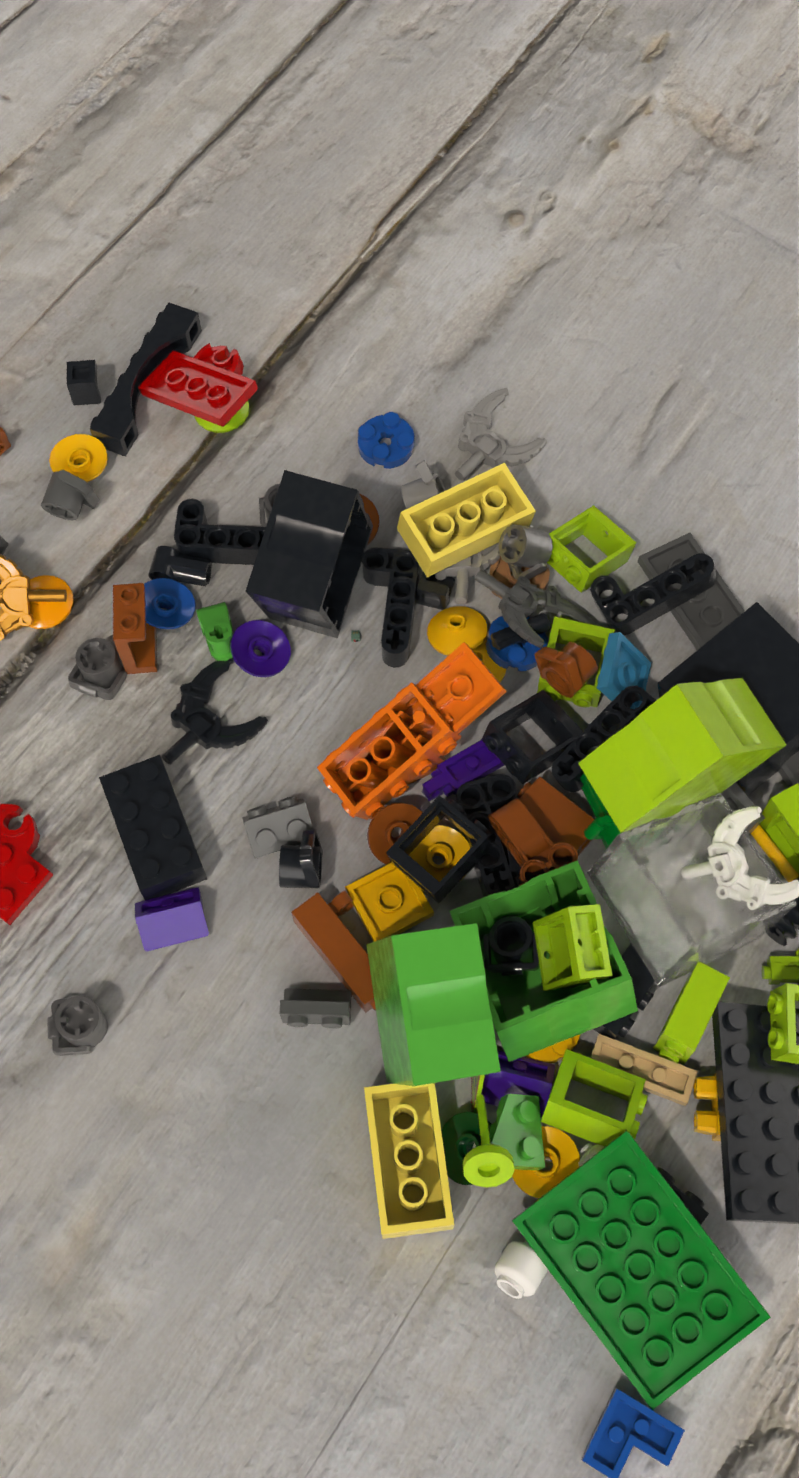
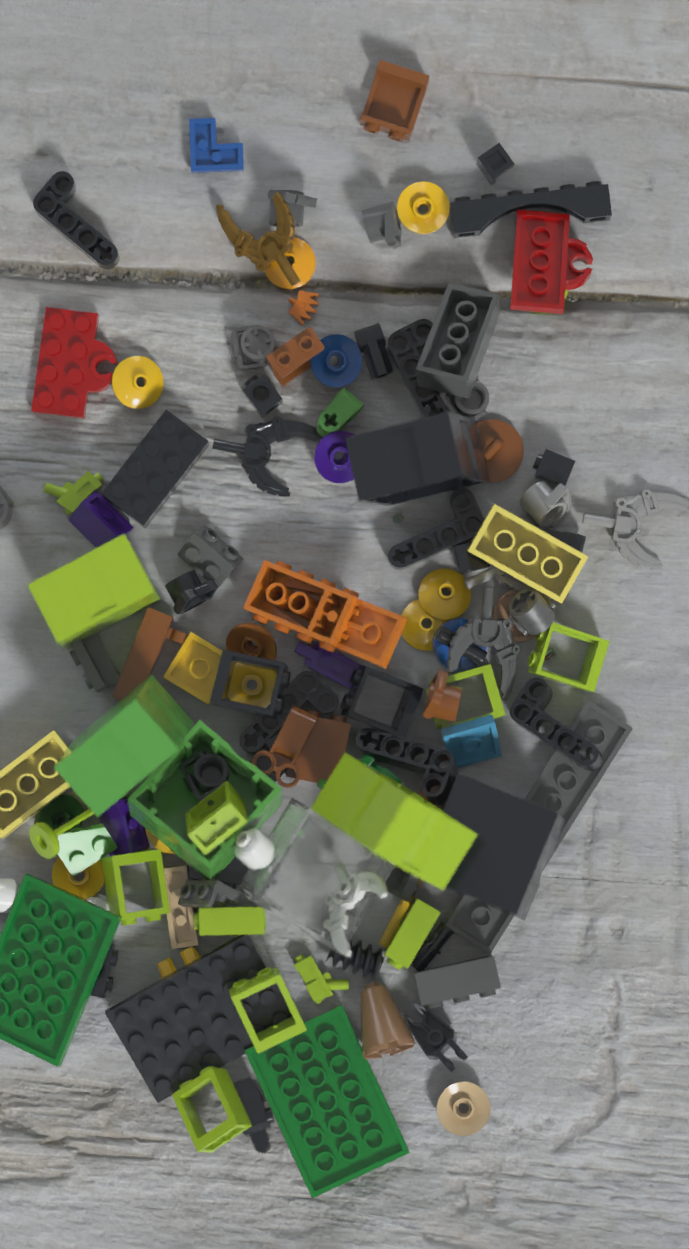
camera: 60 degrees right, 20 degrees up
(49, 808) = (125, 384): none -> yellow dish
(93, 610) = (302, 305): none -> orange piece
(123, 932) = (72, 495): none -> lime piece
(159, 697) = (265, 406): none -> black brick
(222, 479) = (458, 340): none -> dark grey brick
(238, 945) = (94, 592): none -> lime tile
(382, 427) = (600, 435): blue plate -> none
(393, 473) = (553, 467): none -> black brick
(632, 922) = (254, 849): none -> white head
(647, 1021) = (206, 893): none -> dark grey bracket

